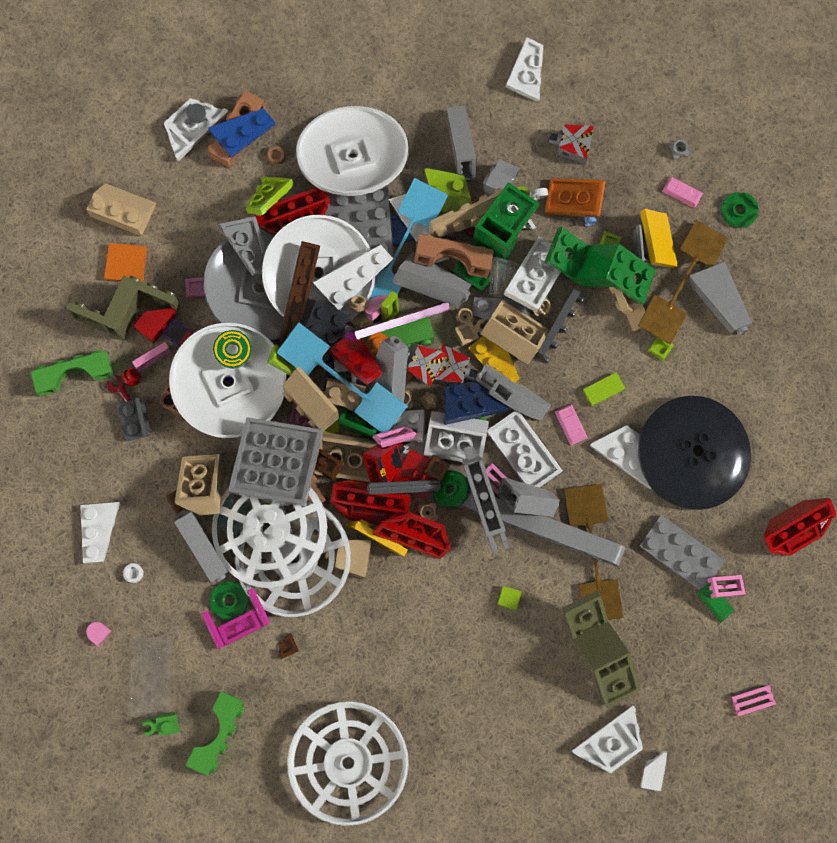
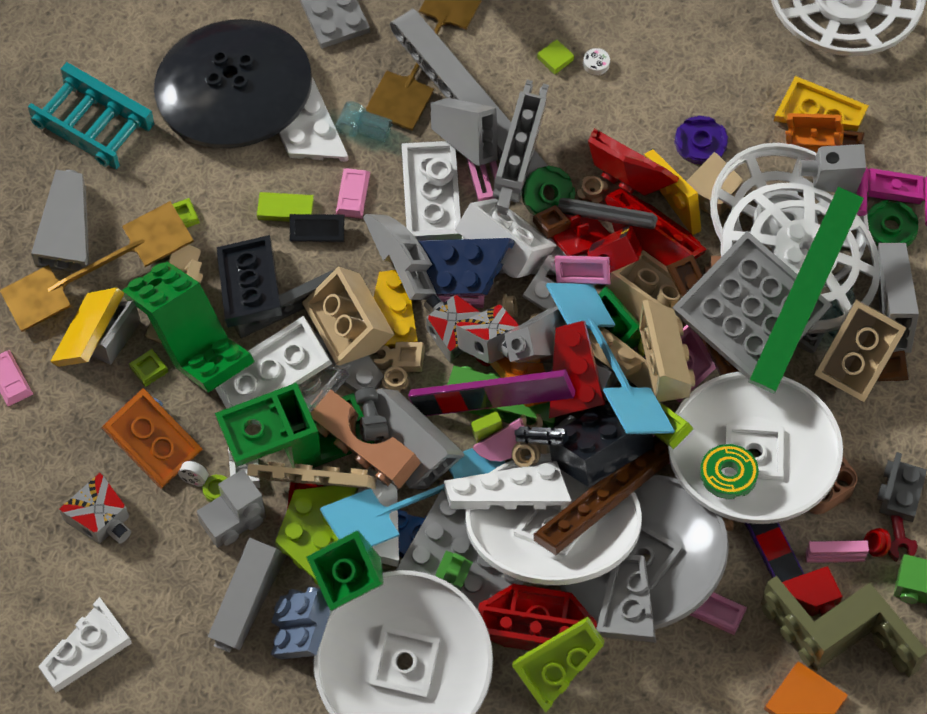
camera: 145 degrees left, 15 degrees down
(247, 489) = (806, 290): none -> green tile
(272, 605) = (836, 167): none -> light grey torso
(310, 634) = (814, 130): none -> orange hinge
(321, 660) = (810, 98): none -> yellow wing
(352, 308) = (541, 436): none -> black axle
(356, 213) = (453, 569): none -> bright green tile
(381, 591) = (702, 146): none -> dark purple tile
(407, 166) = (346, 569): none -> green slope
(420, 140) = (301, 623): none -> sand blue plate
(455, 268) = (372, 425): none -> dark grey leg
(481, 610) = (596, 61): none -> white tile
(575, 385) = (317, 228): none -> black tile
(587, 319) = (249, 281): none -> black plate
(598, 472) = (356, 120): none -> clear light blue piece
(752, 393) = (94, 93): none -> teal fence

